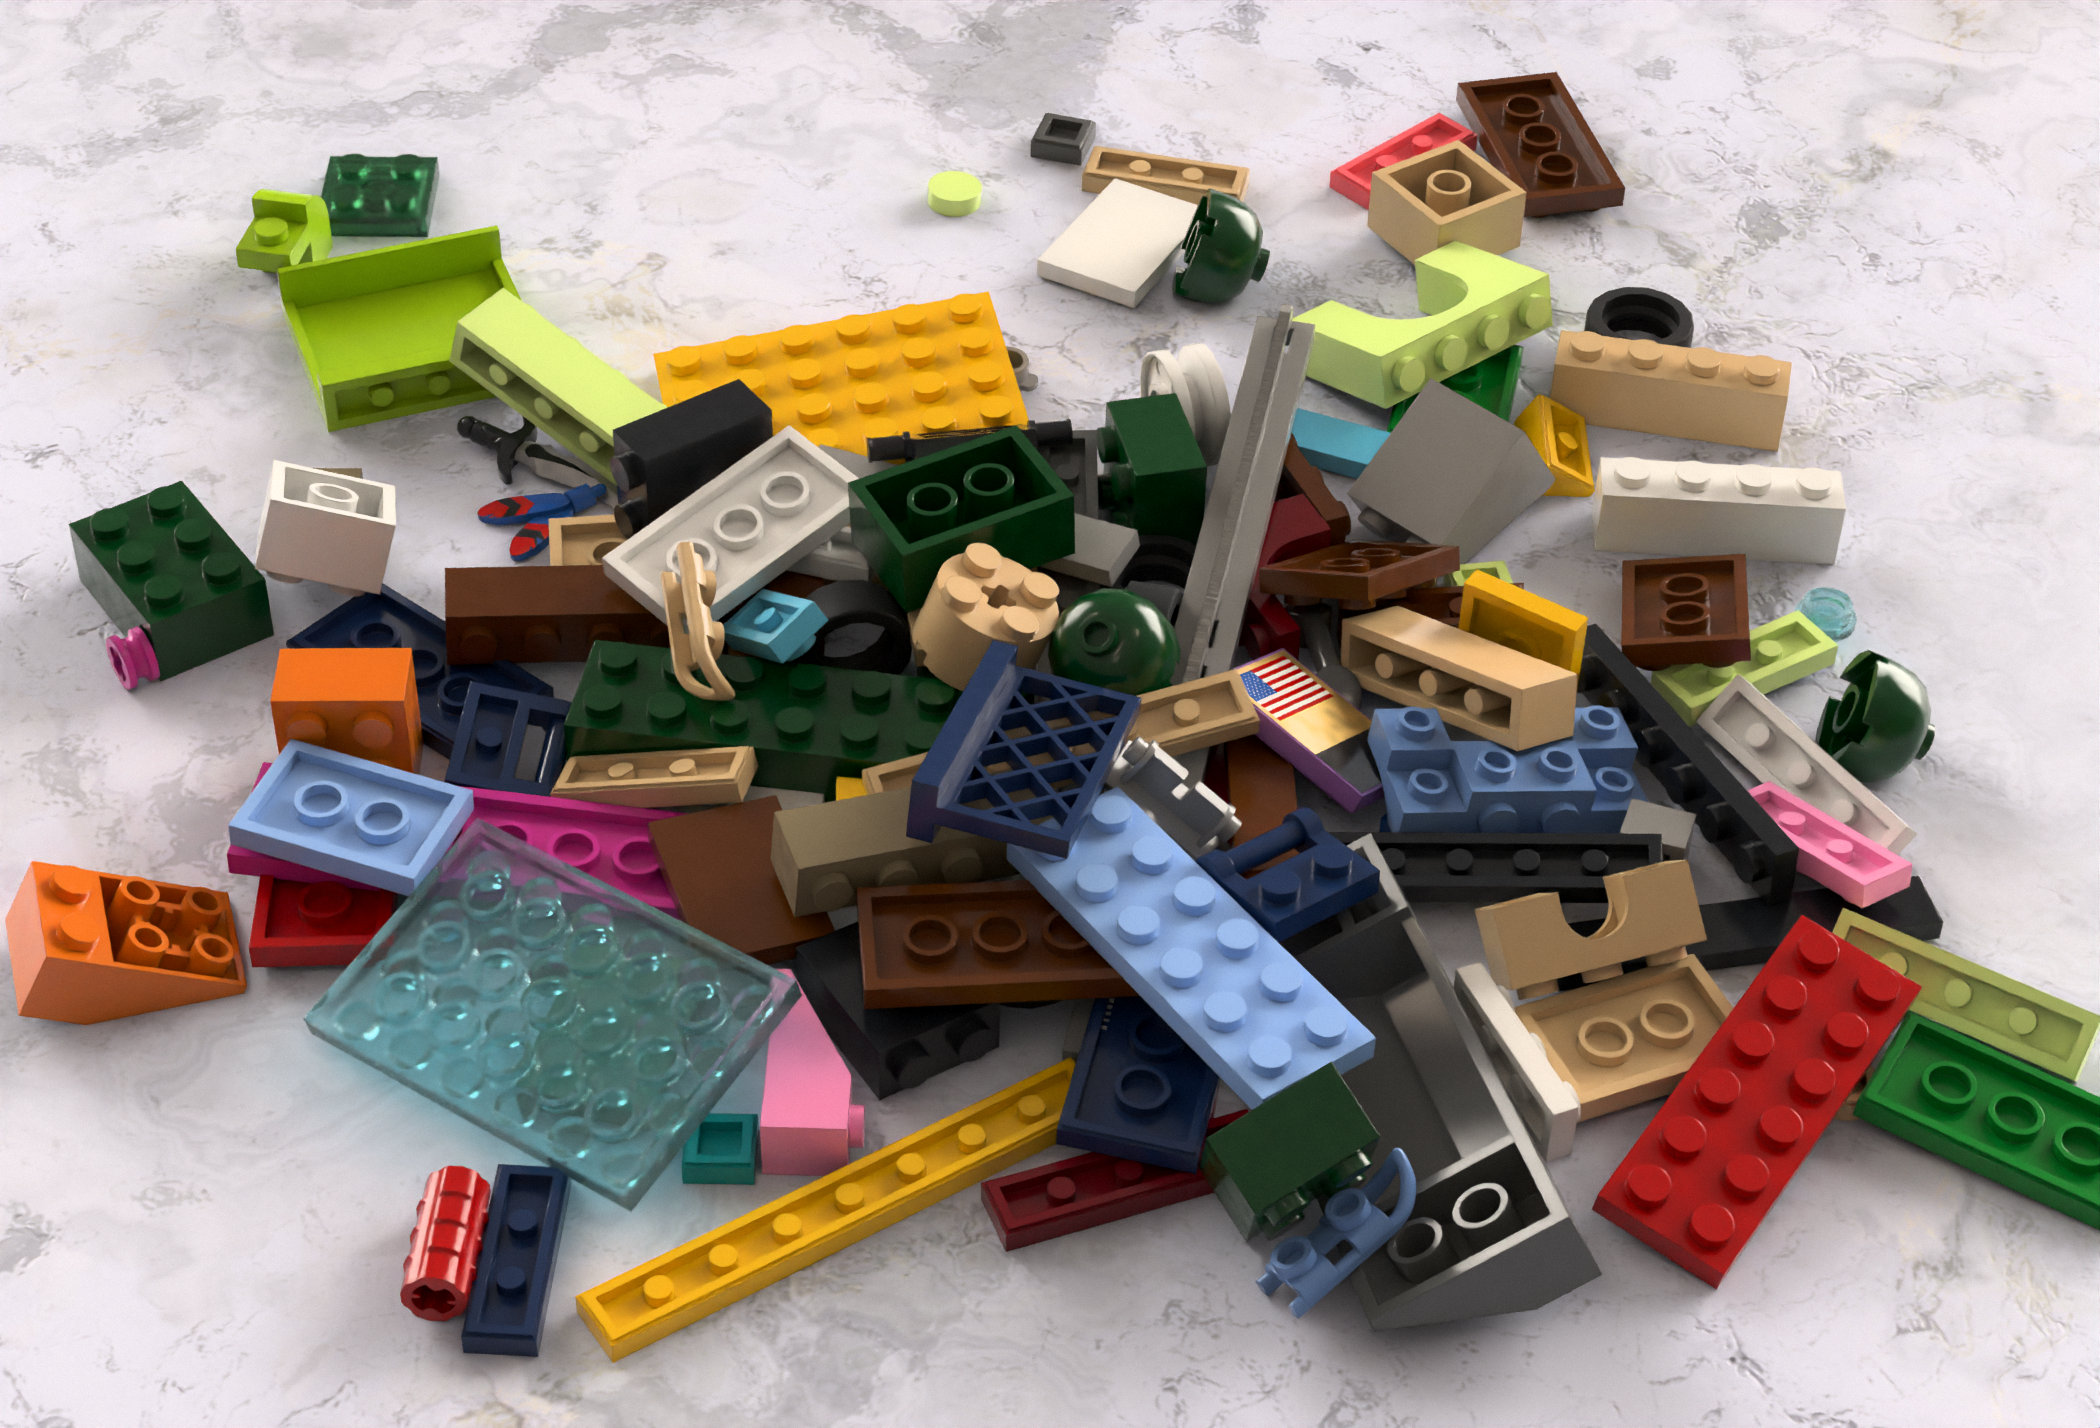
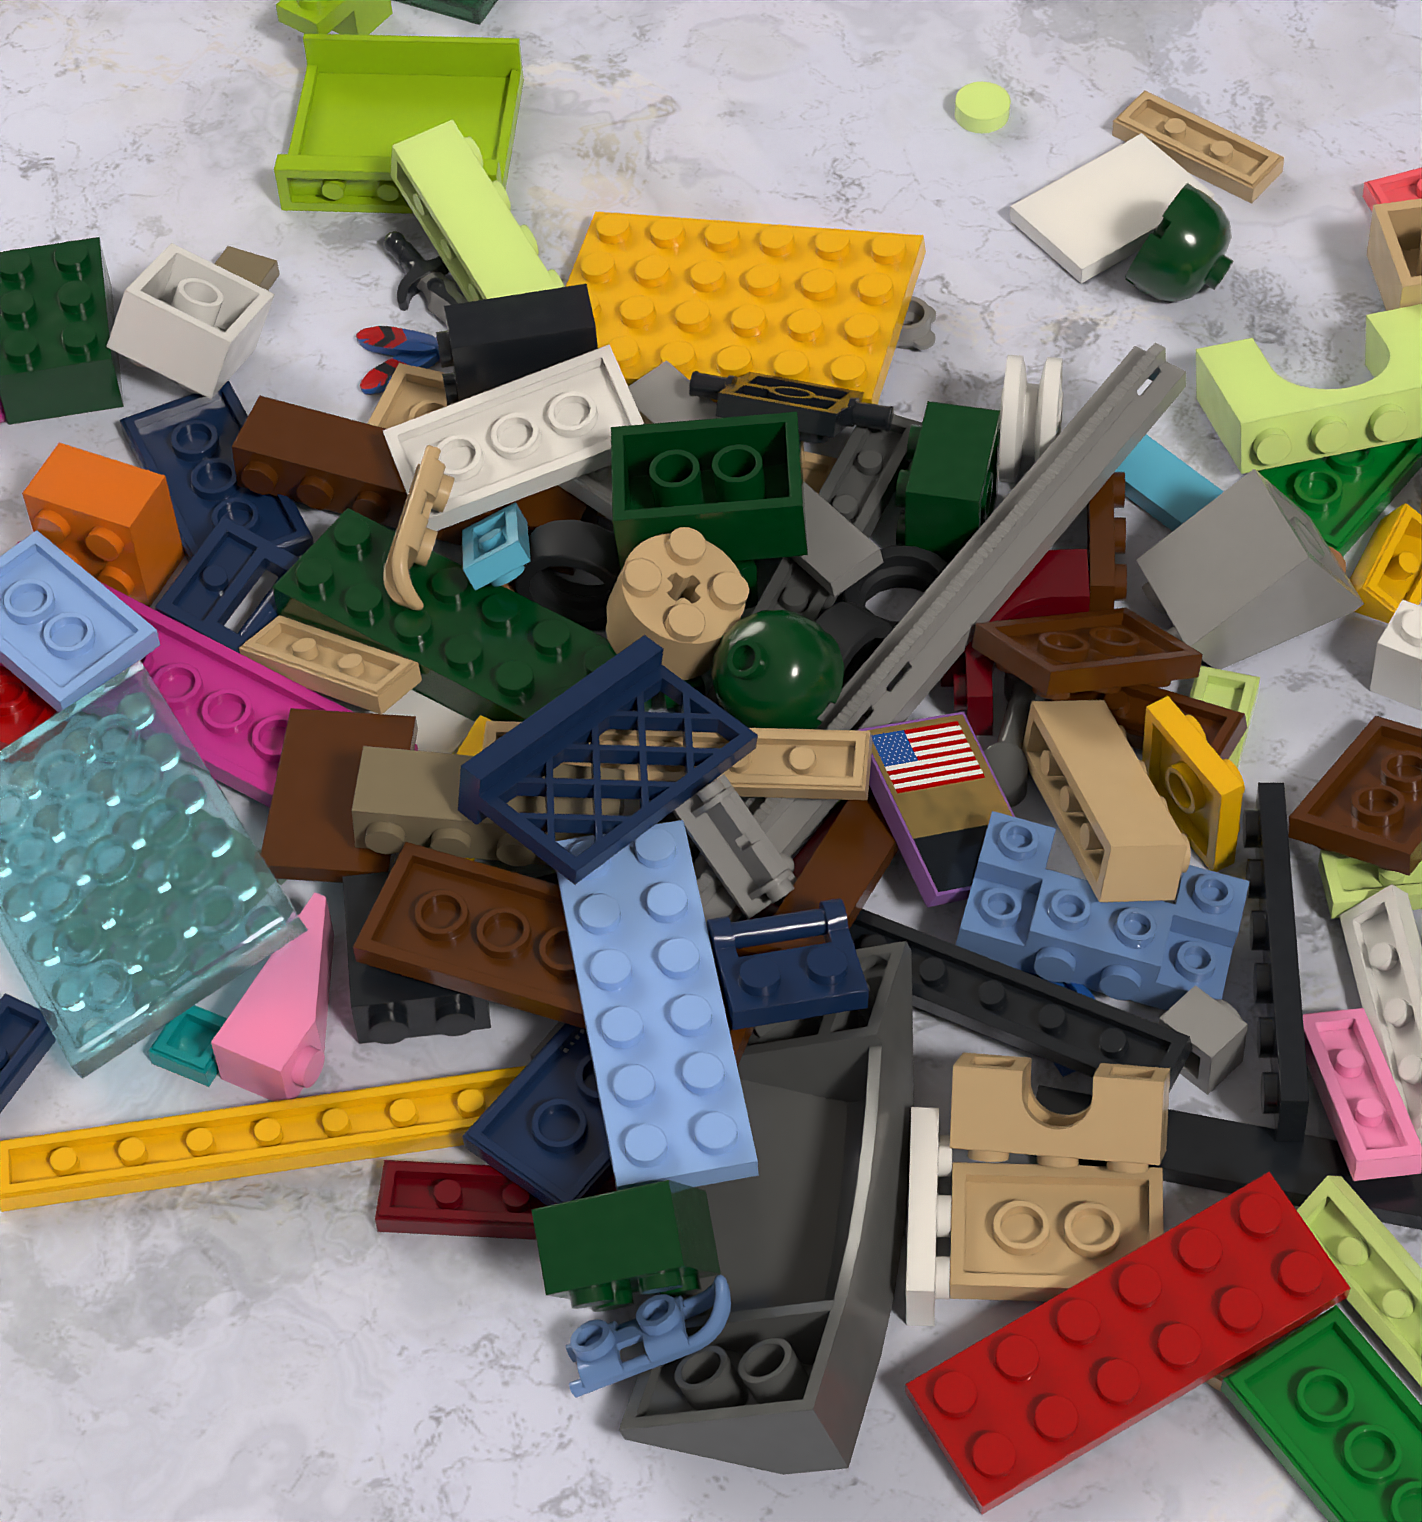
camera: 30 degrees right, 10 degrees up
(1063, 139) = (1124, 72): dark grey tile -> none

